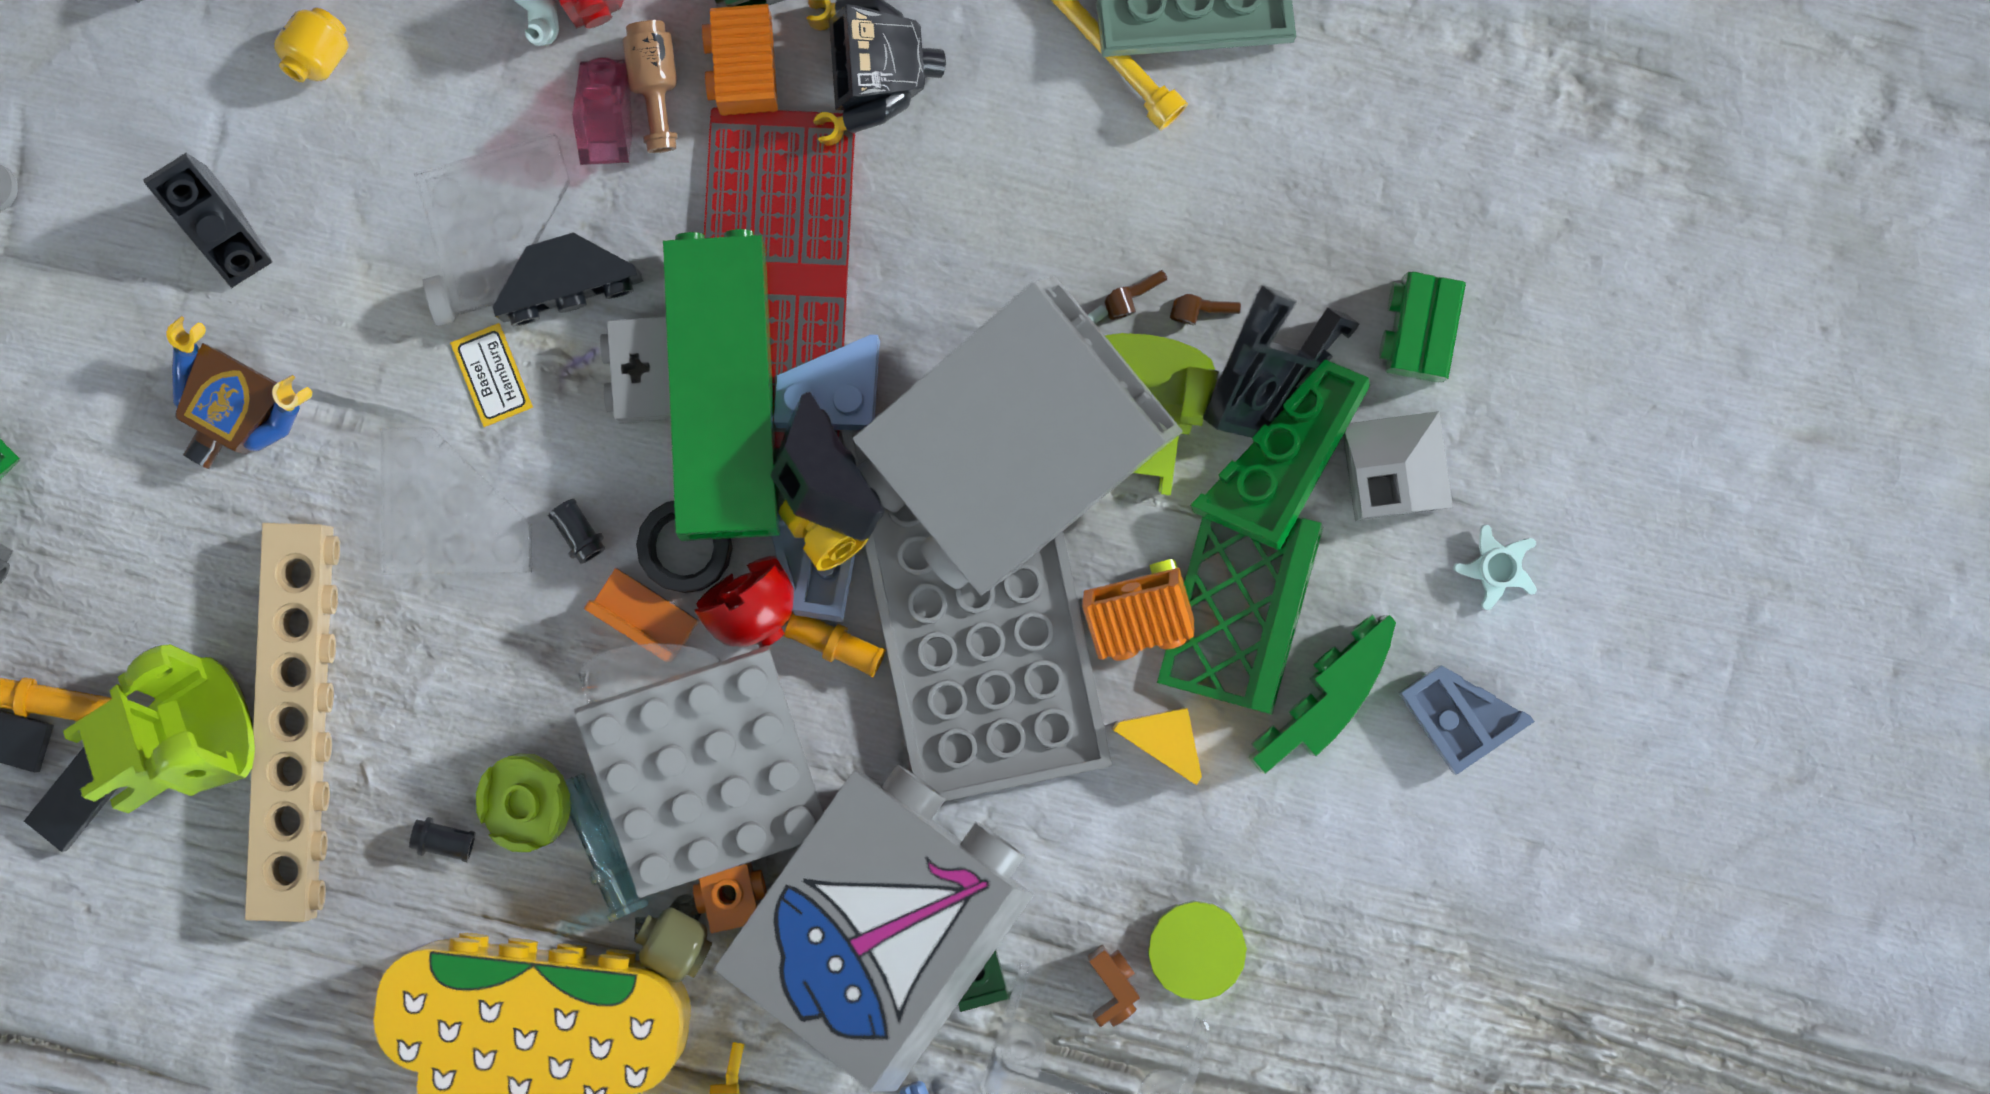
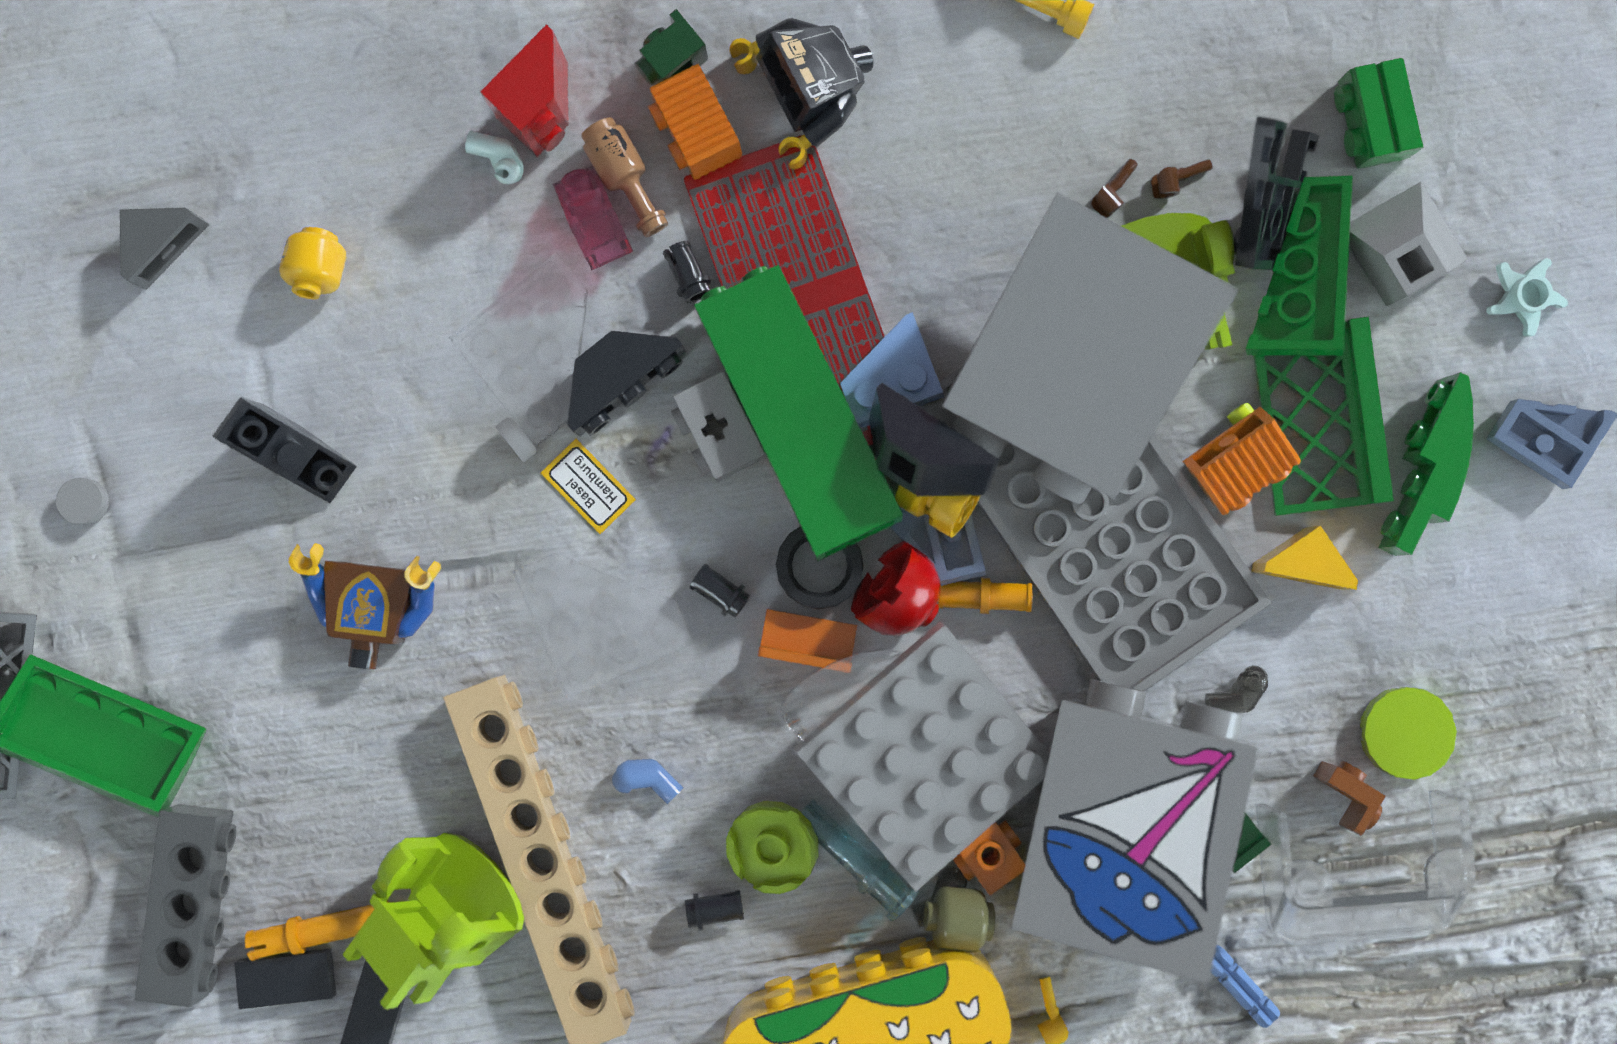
camera: 25 degrees left, 0 degrees up
(428, 680) = (645, 774): none -> medium blue arm
(675, 203) = (687, 272): none -> black pin
(1050, 845) = (1243, 694): none -> clear smoke arm

